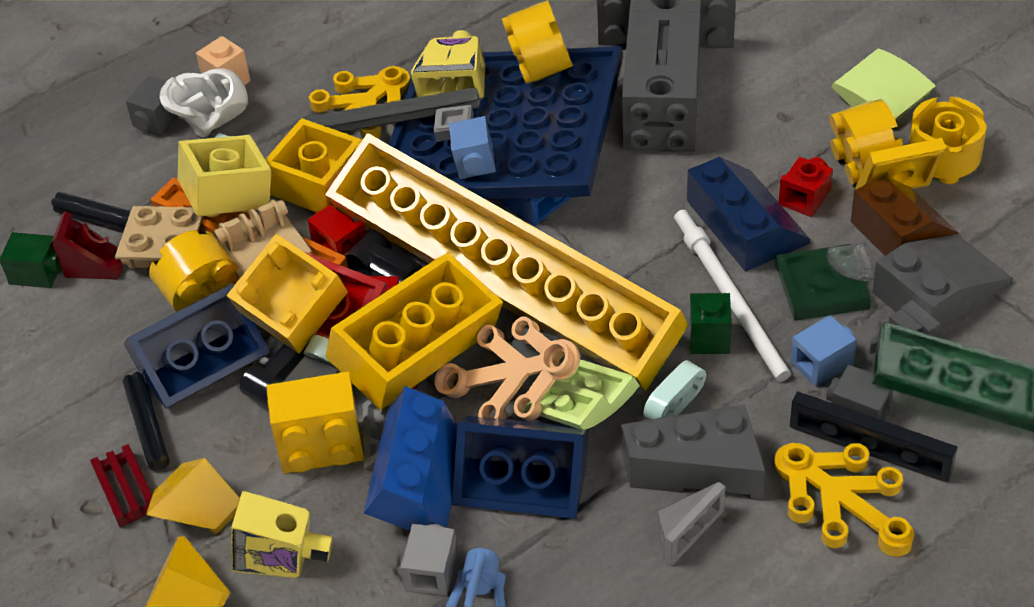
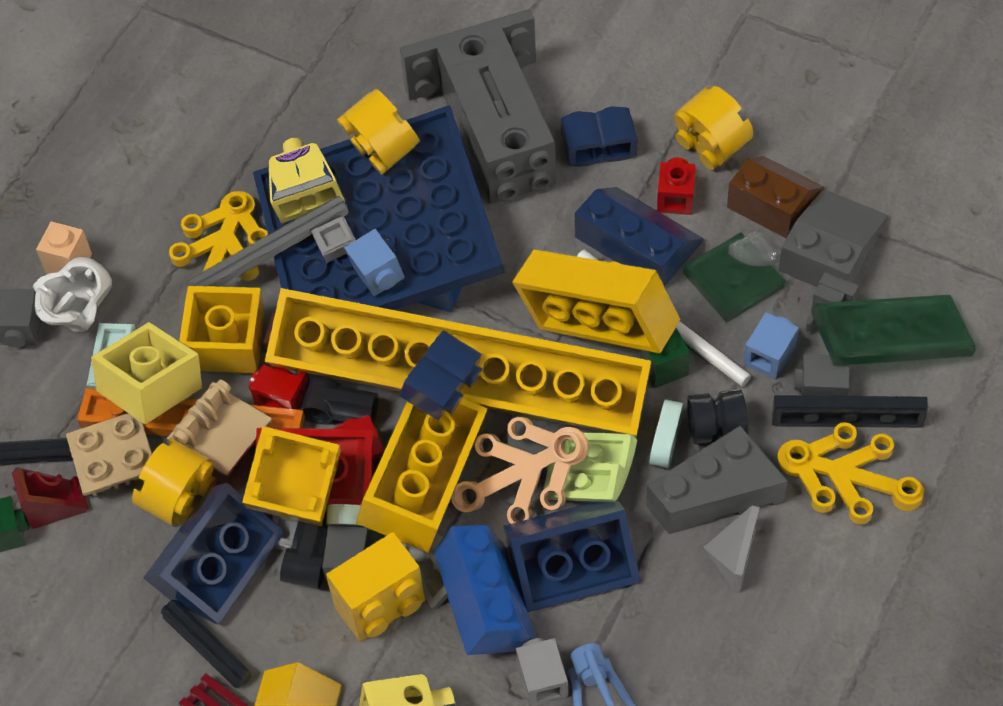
camera: 25 degrees left, 10 degrees up
(468, 251) = (441, 375): none -> dark blue brick
(662, 245) = (597, 300): none -> yellow brick
(725, 389) = (716, 416): none -> black wheel
(754, 120) = (598, 136): none -> dark blue brick
(887, 79) = (692, 59): yellowish green slope -> none
(907, 164) = (756, 144): yellow tile -> none
(960, 127) = (777, 98): yellow brick -> none

